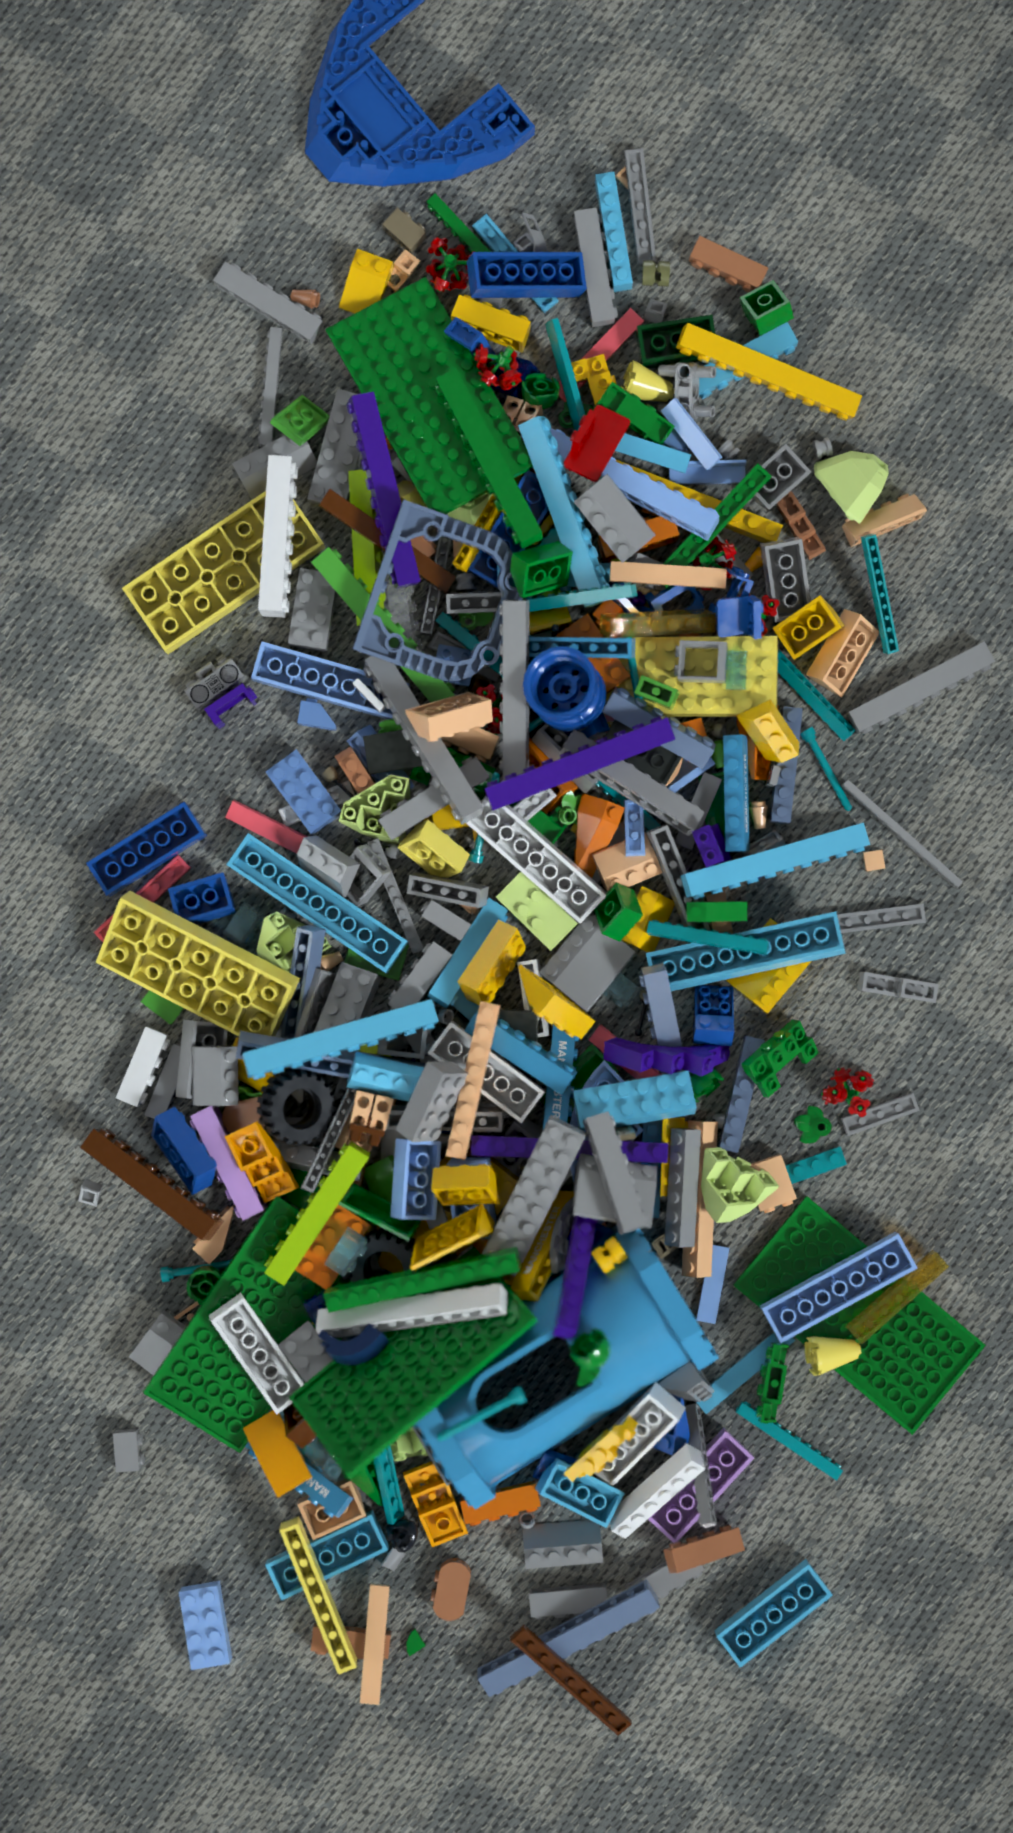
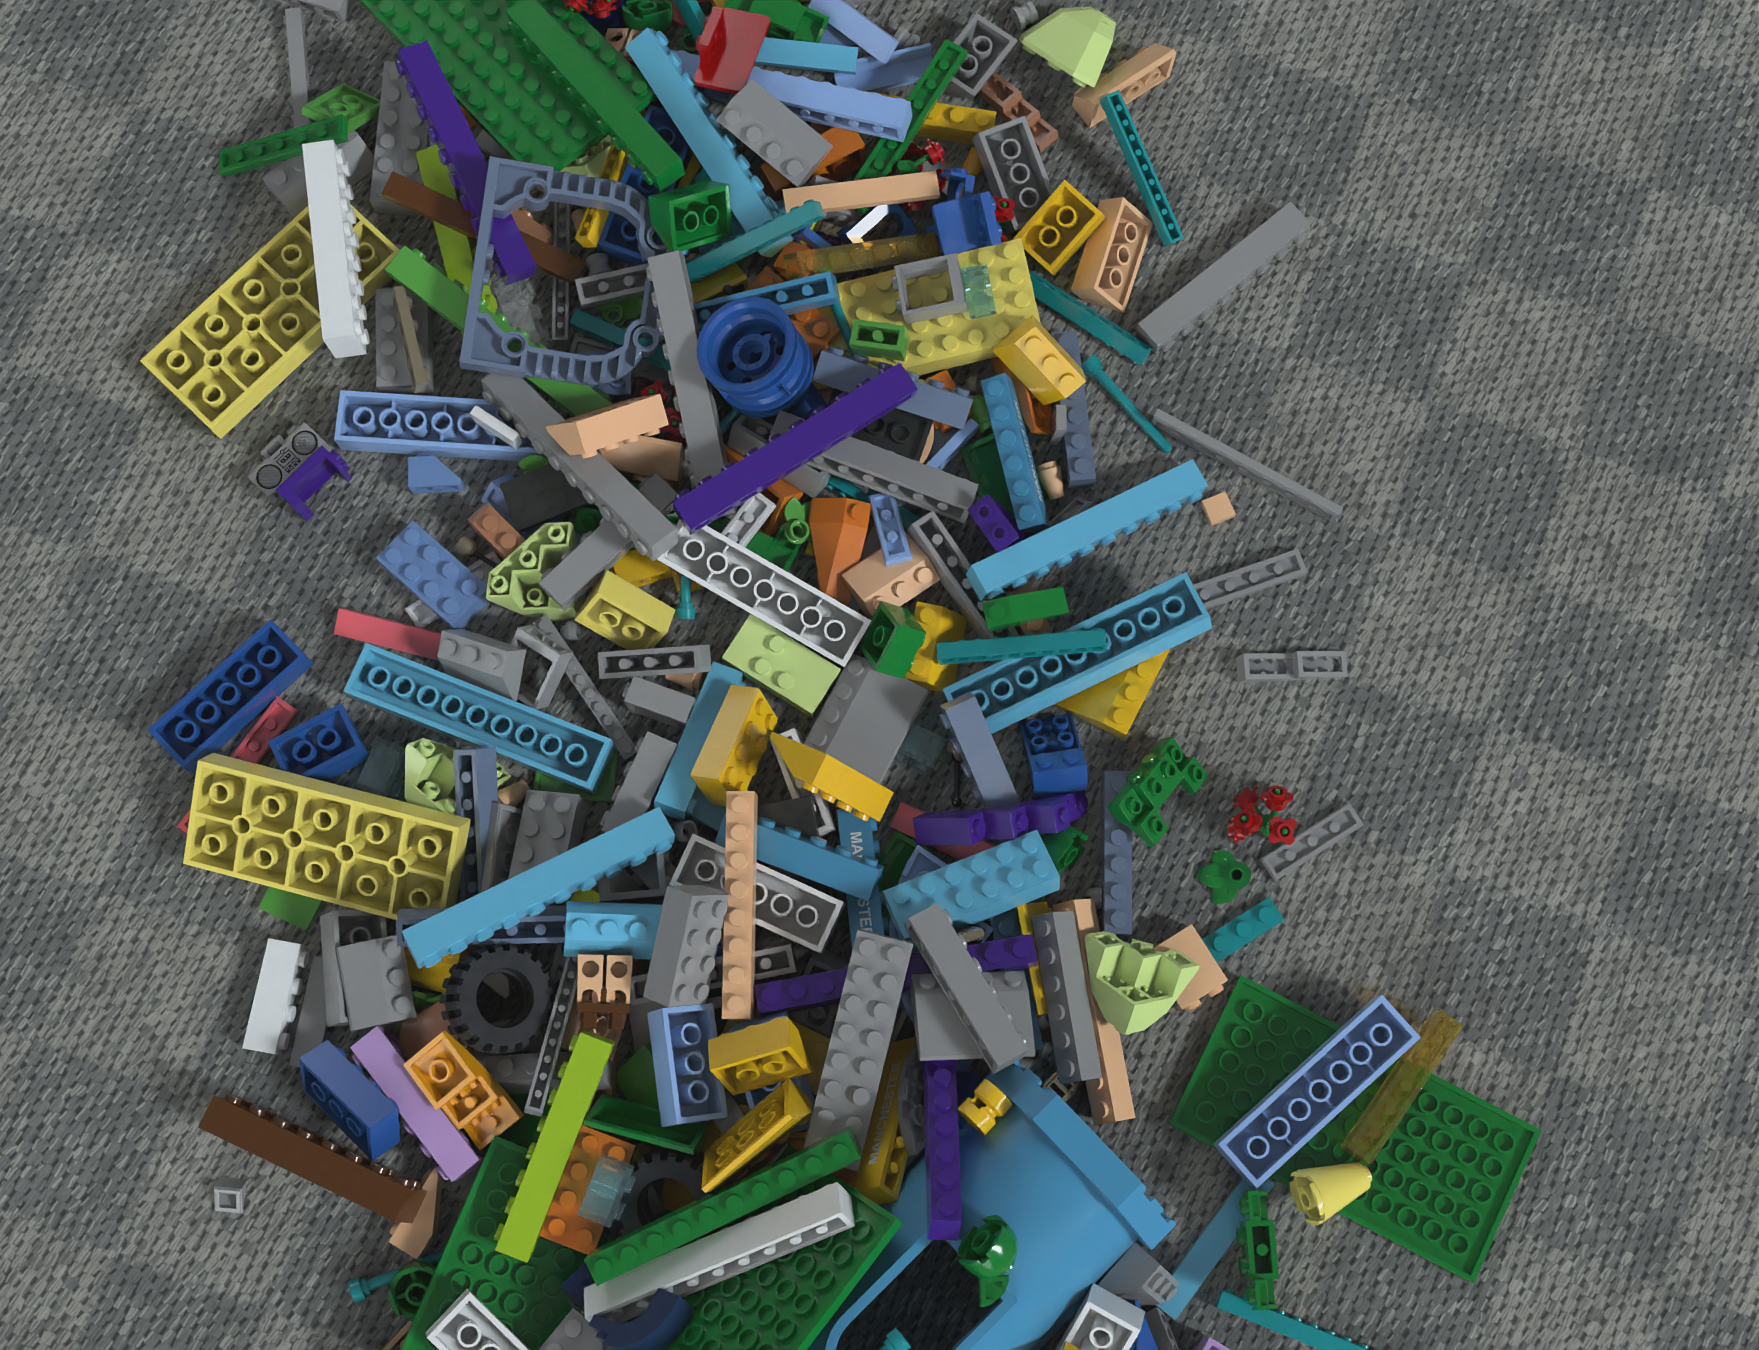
camera: 15 degrees left, 10 degrees down
(251, 442) = (281, 145): none -> green tile
(319, 606) = (408, 329): none -> dark tan plate
(703, 798) = (973, 468): light grey tile -> none
(712, 1286) = (1140, 1130): light blue tile -> none

